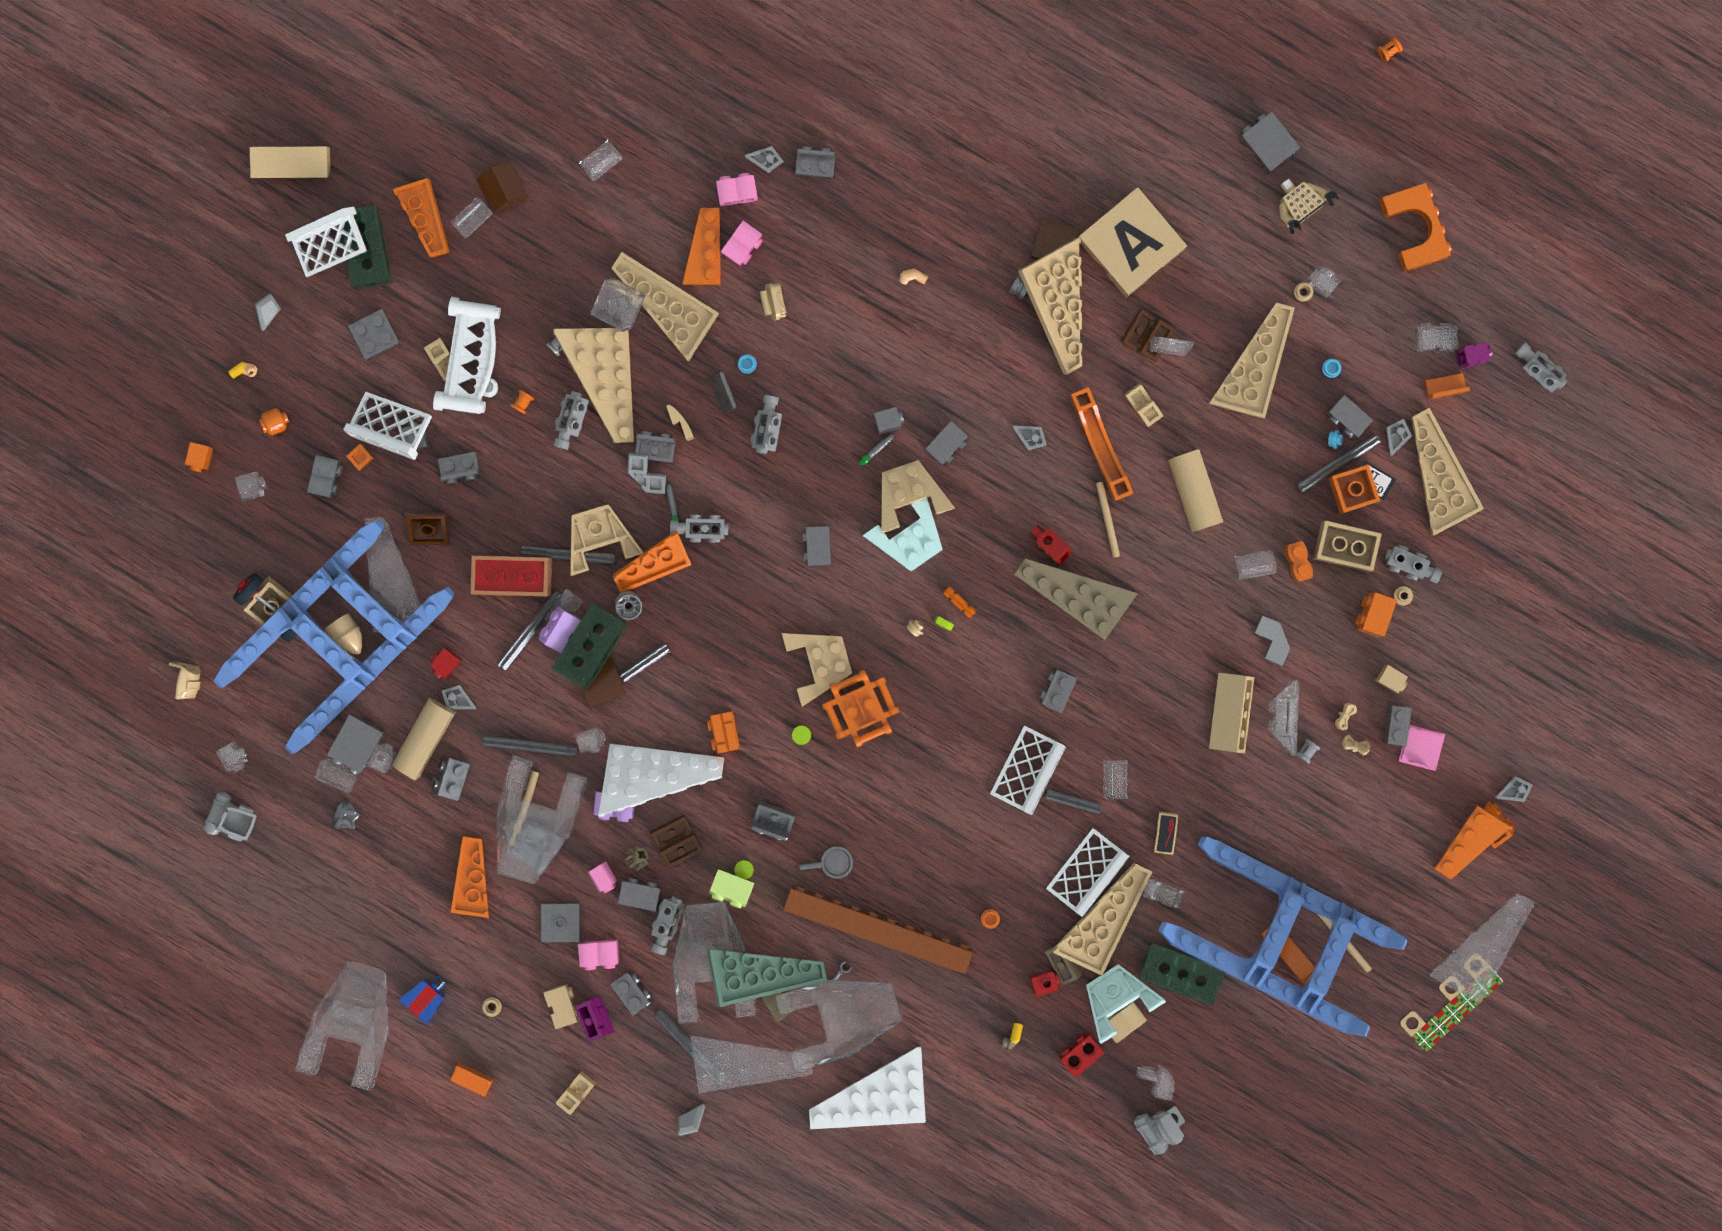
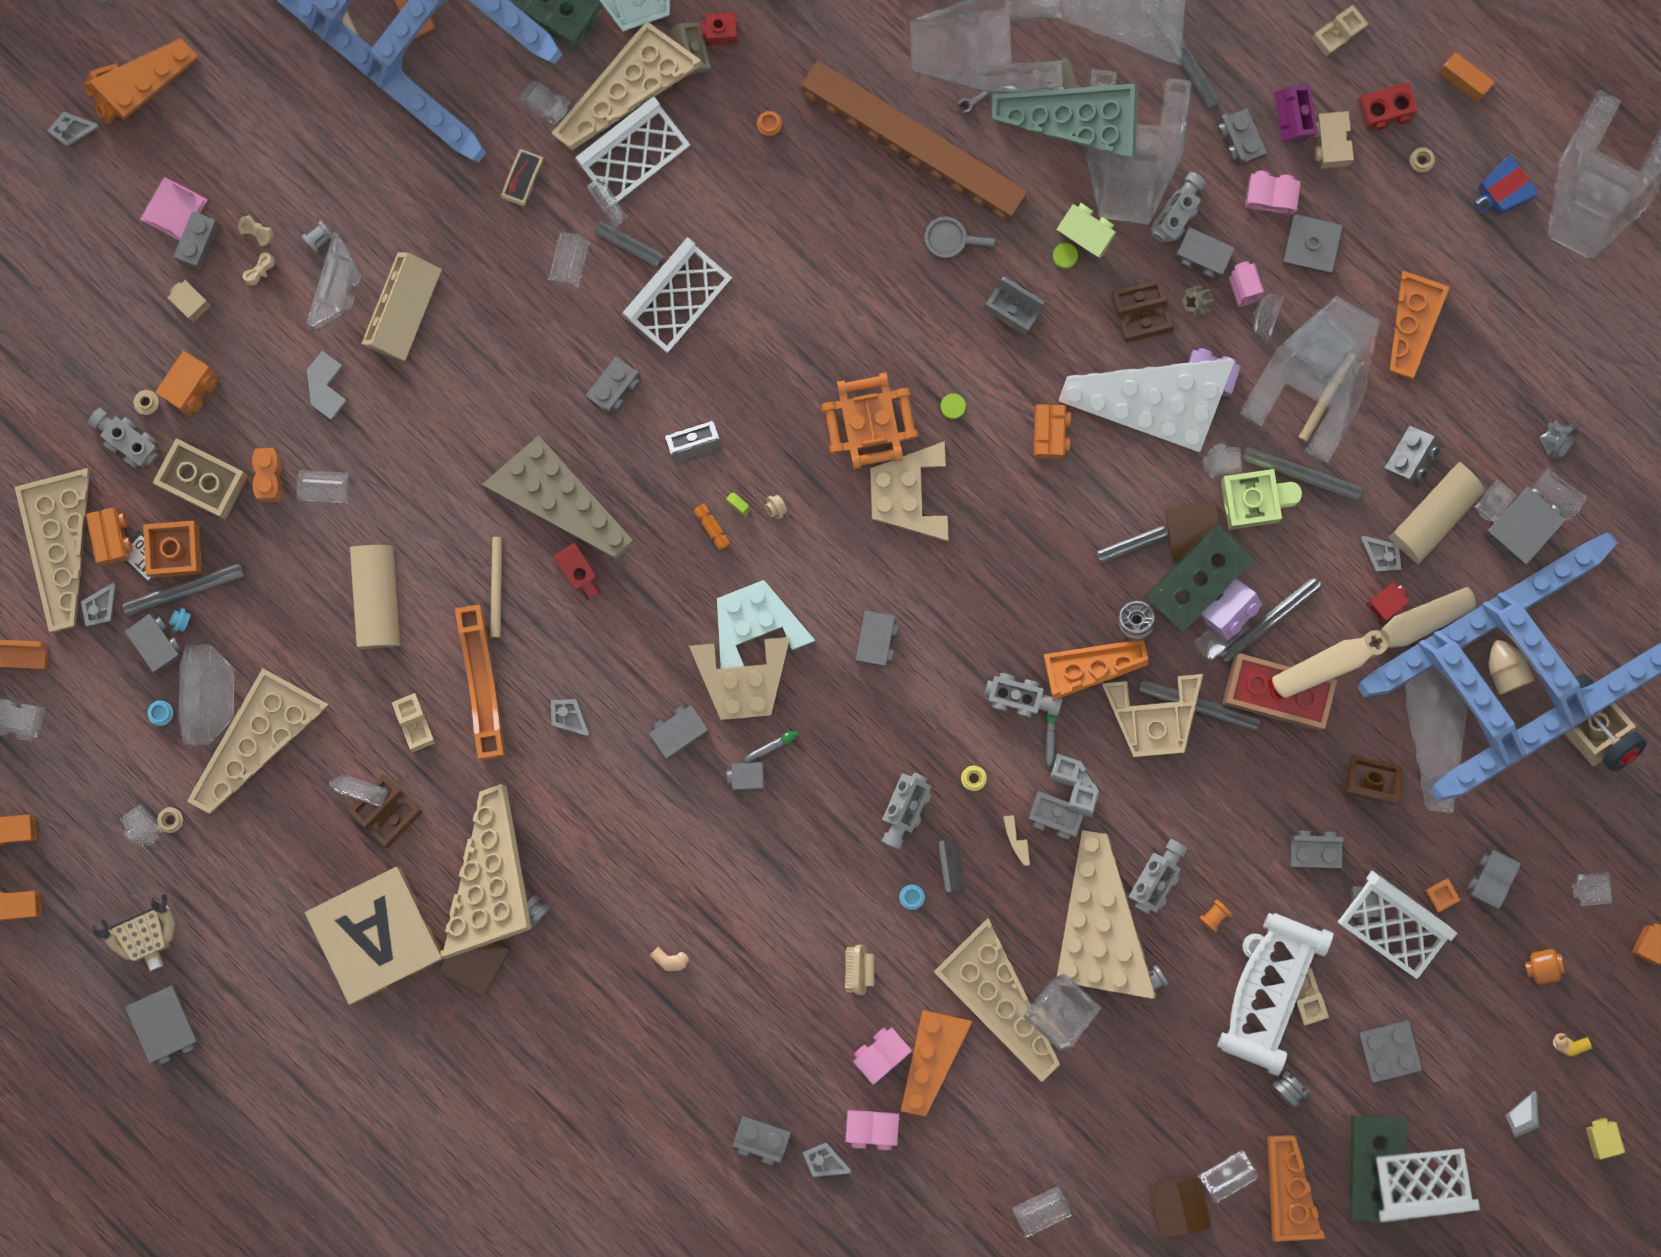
camera: 165 degrees left, 5 degrees down
(204, 306) = (1605, 1139): none -> light yellow brick
(439, 288) = (1291, 1091): none -> flat silver wheel
(462, 617) = (1353, 653): none -> tan piece
(528, 1045) = (1385, 101): none -> red brick
(559, 717) = (1256, 498): none -> yellowish green brick
(583, 858) = (1266, 316): none -> clear plate
(717, 457) = (973, 770): none -> light yellow plate
(988, 662) = (693, 443): none -> flat silver slope
(1096, 828) = (607, 202): none -> clear slope
(1302, 390) = (204, 694): none -> clear wedge
(1404, 488) = (108, 536): none -> orange brick

